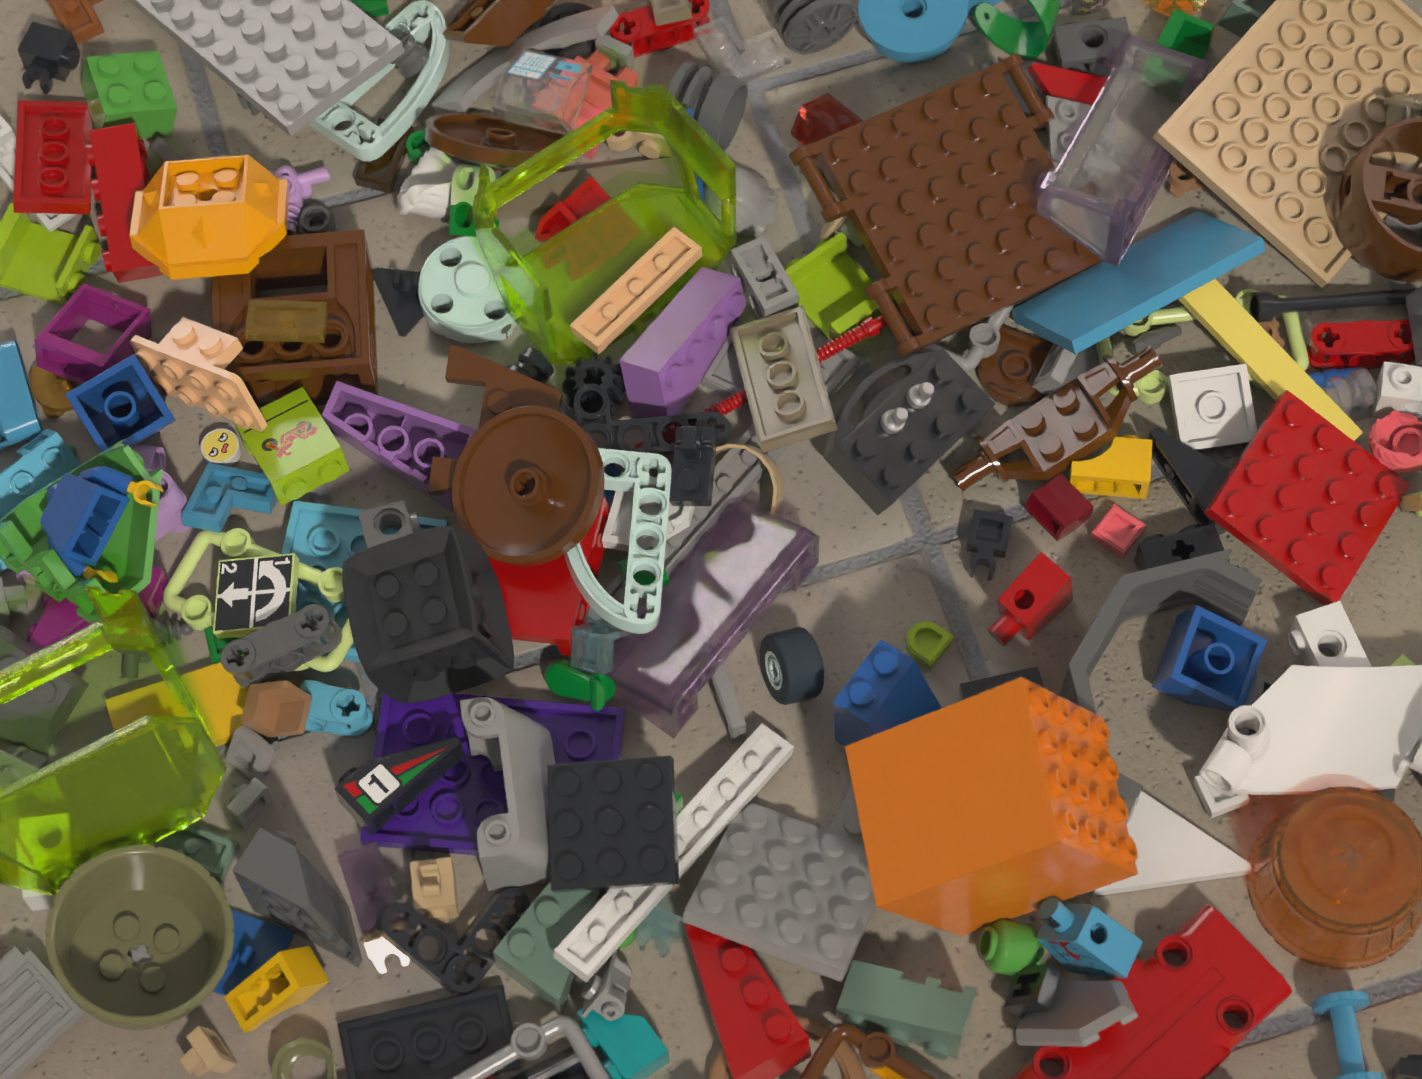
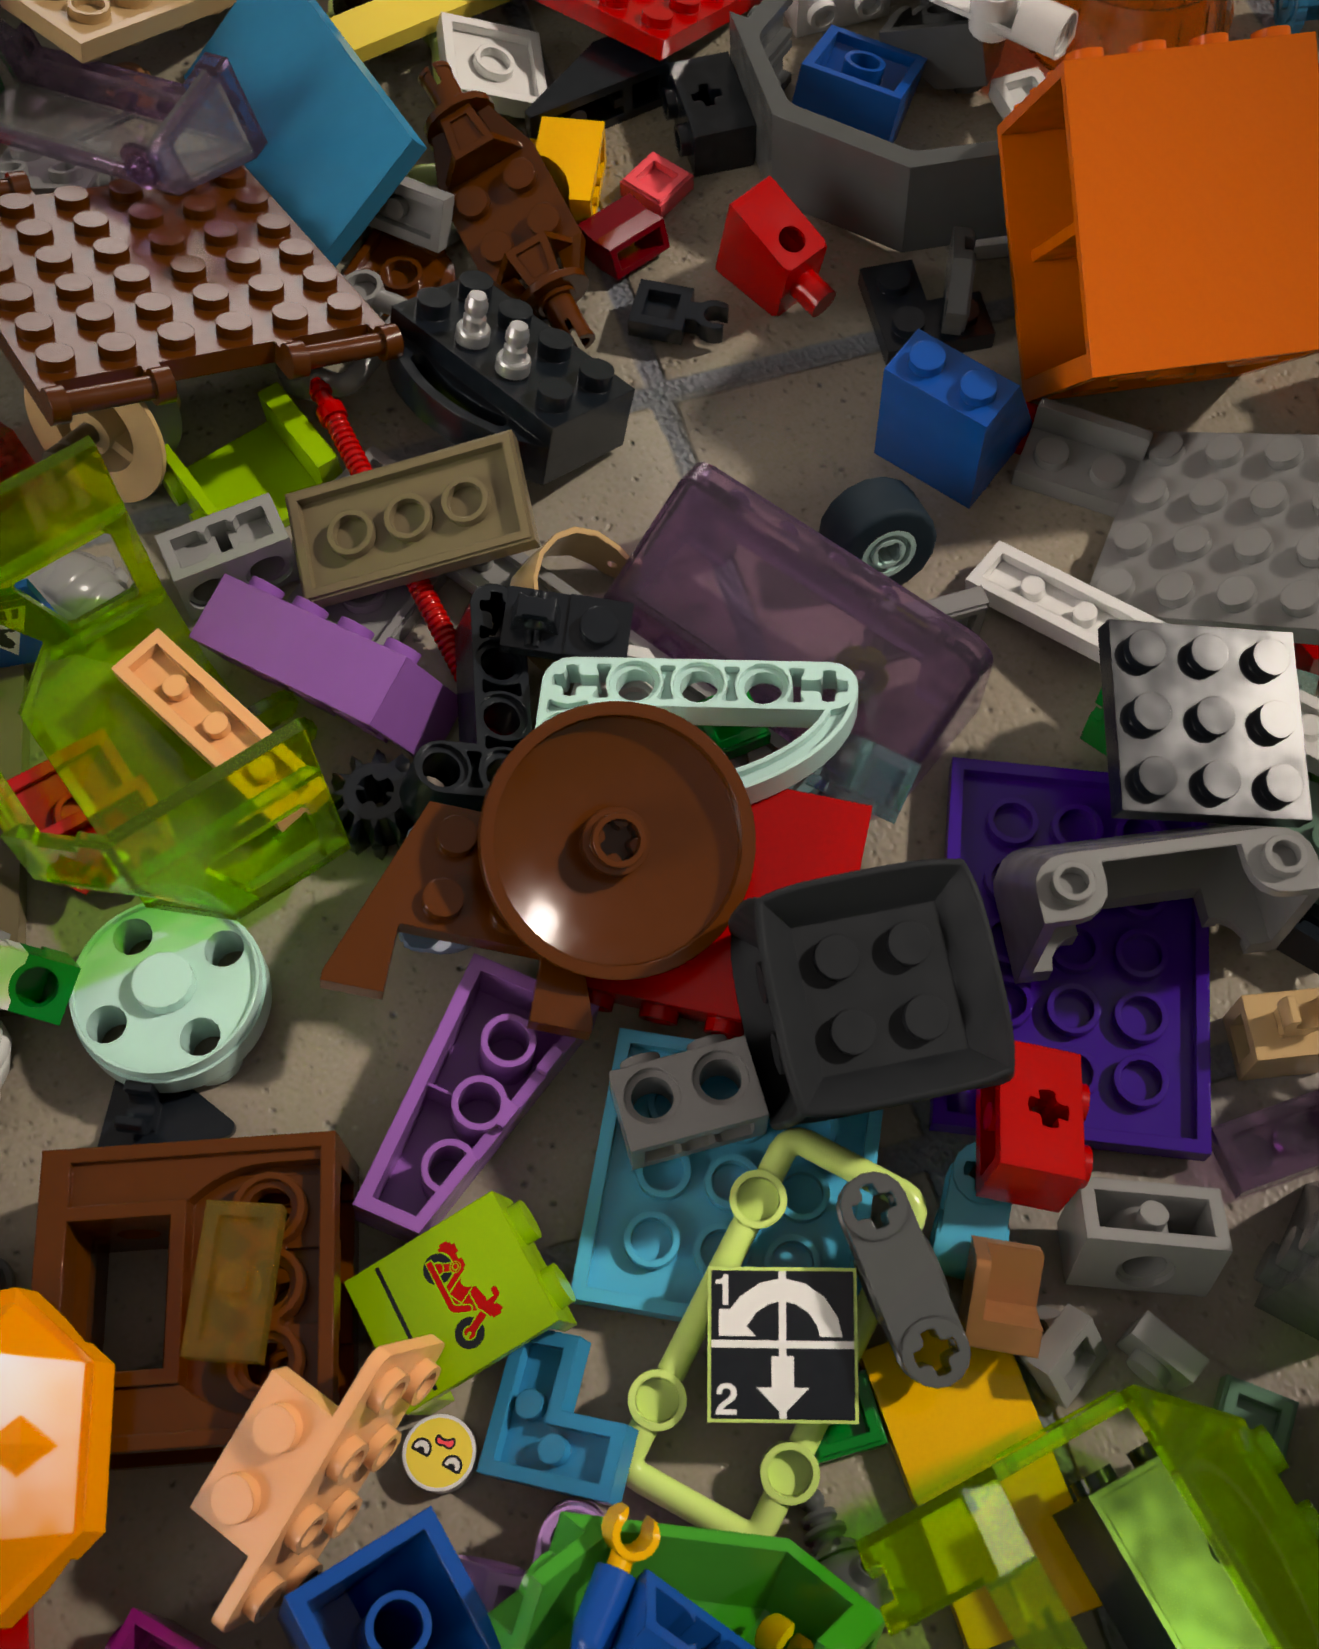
camera: 90 degrees left, 0 degrees up
(310, 791) = (1144, 1237): none -> light grey brick
(350, 707) = (1034, 1131): none -> red brick
(392, 782) = (1137, 1100): black slope -> none
(533, 365) = (333, 900): black wheel -> none
(575, 684) = (919, 816): green piece -> none
(927, 643) = (823, 393): lime tile -> none

